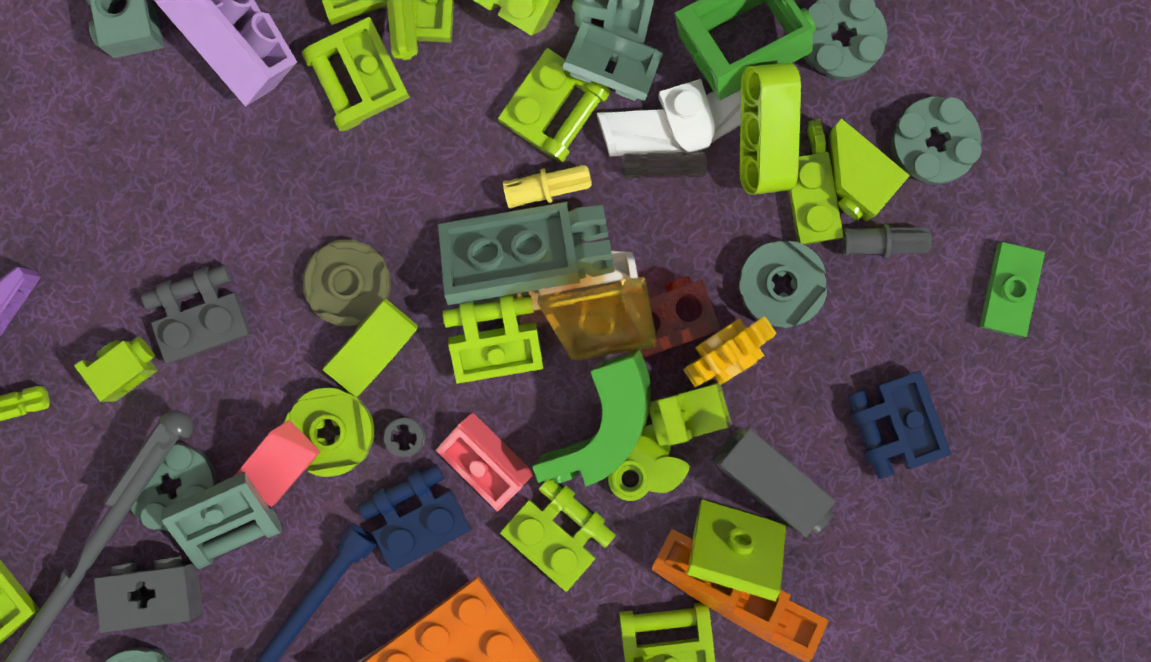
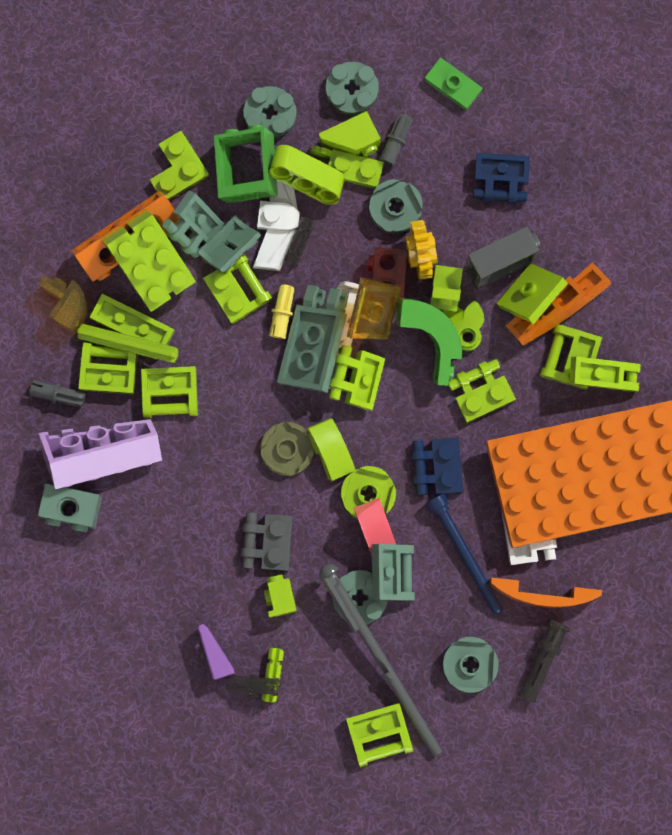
camera: 65 degrees left, 5 degrees down
(125, 607) = (428, 620): dark grey brick -> none
(395, 446) = (393, 460): dark grey bush -> none
(484, 461) = (423, 415): coral slope -> none

